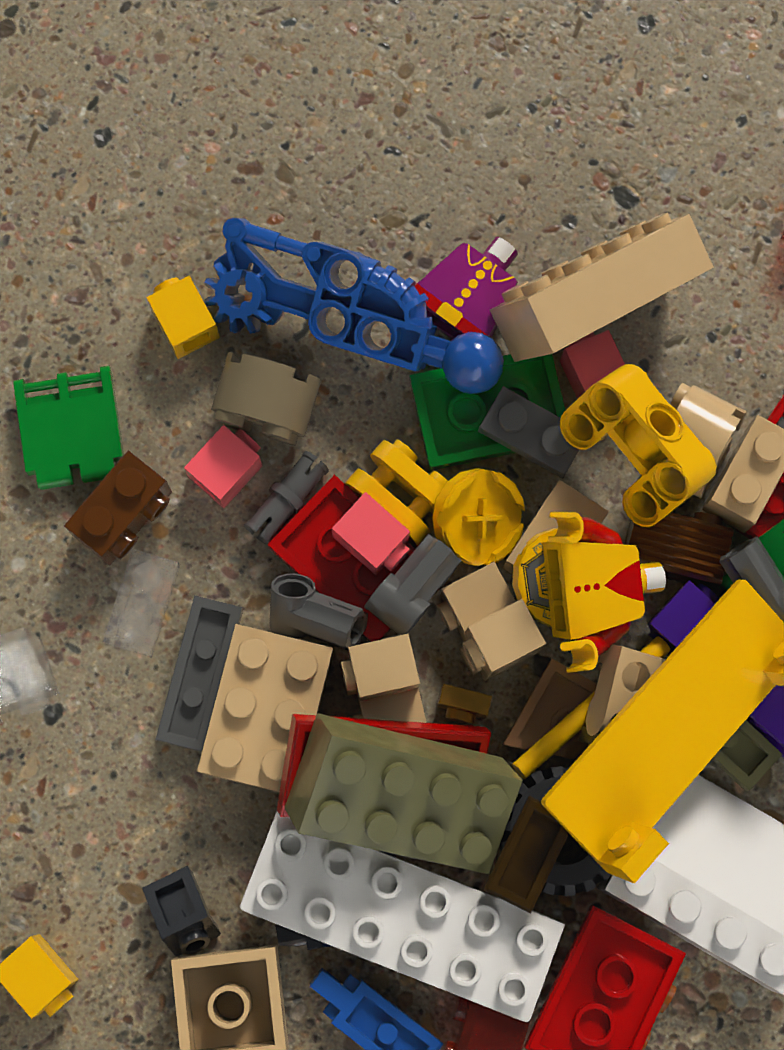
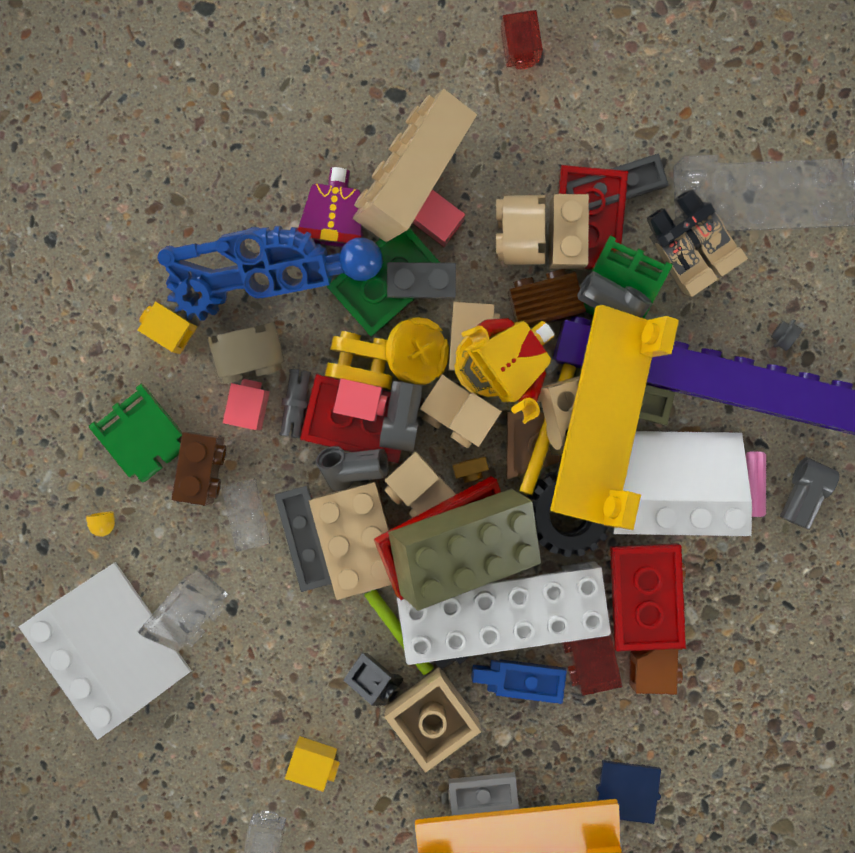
camera: 30 degrees left, 10 degrees up
(248, 856) = (392, 623): none -> lime bar
(527, 856) = (558, 544): dark brown tile -> none
(648, 434) = (495, 247): yellow beam -> none

